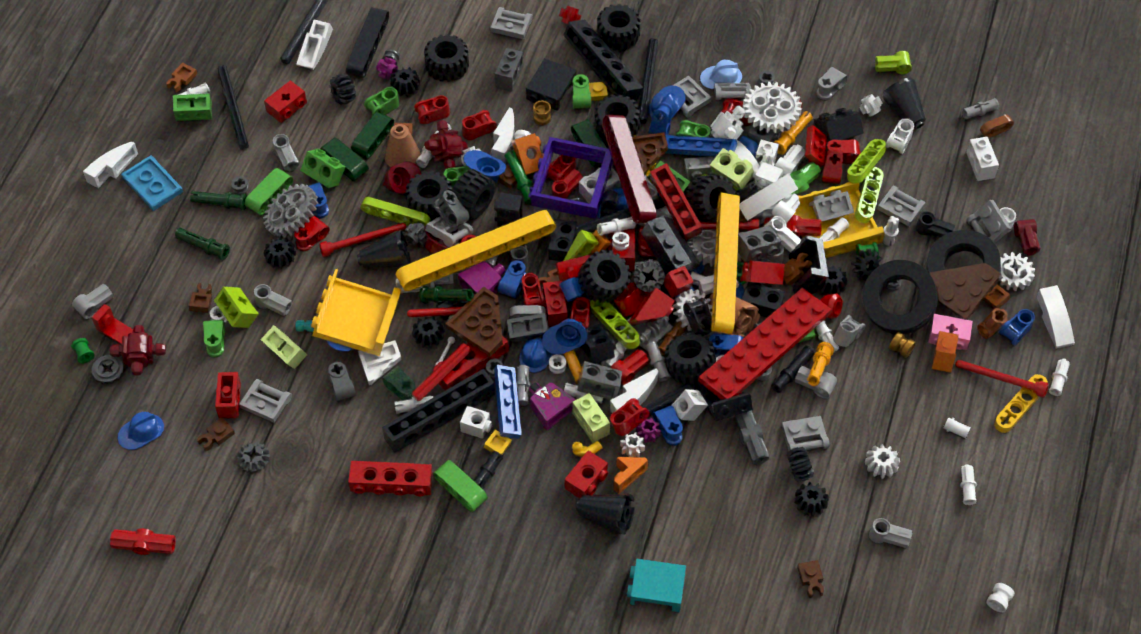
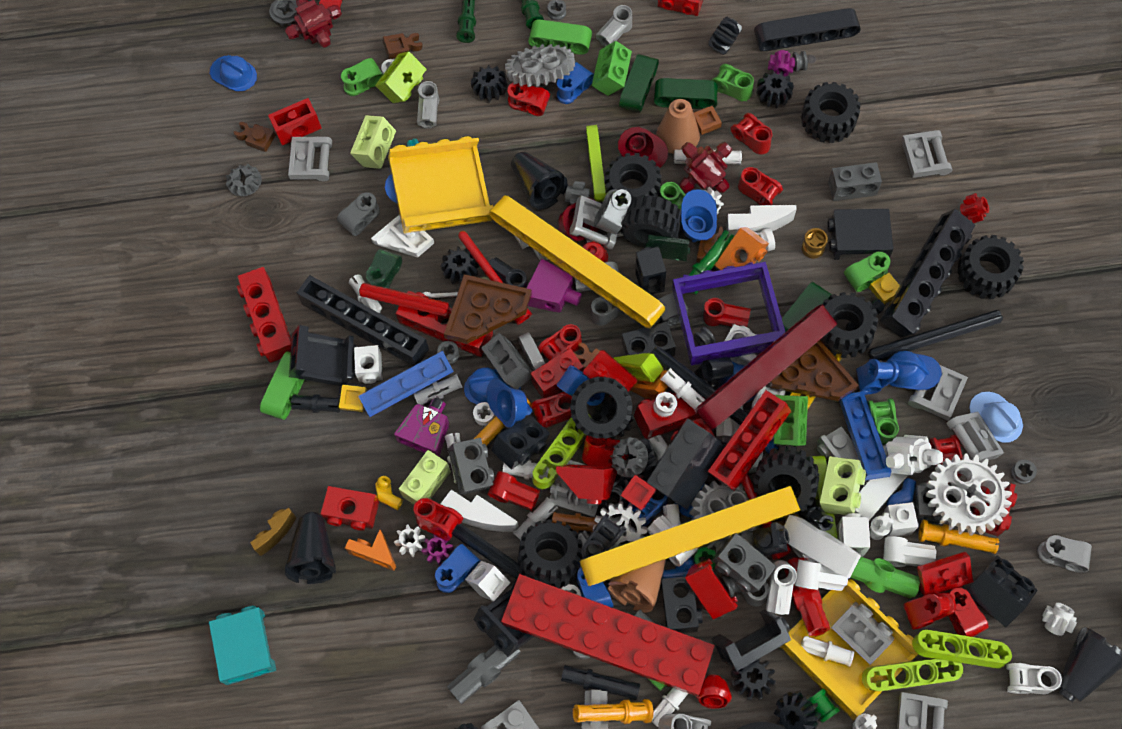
camera: 70 degrees right, 10 degrees up
(142, 541) = (109, 134): red piece -> none
(327, 247) = (519, 123): red piece -> none
(439, 294) = (507, 253): dark green pin -> none
(454, 447) = (321, 357): none -> black panel
(494, 193) = (670, 247): none -> clear green piece
(512, 281) = (563, 315): blue piece -> none
(561, 167) = (746, 297): red piece -> none
(578, 533) = (280, 524): none -> pearl gold slope
(749, 220) = (771, 539): none -> black bracket
(794, 267) = (743, 624): dark orange plate -> none

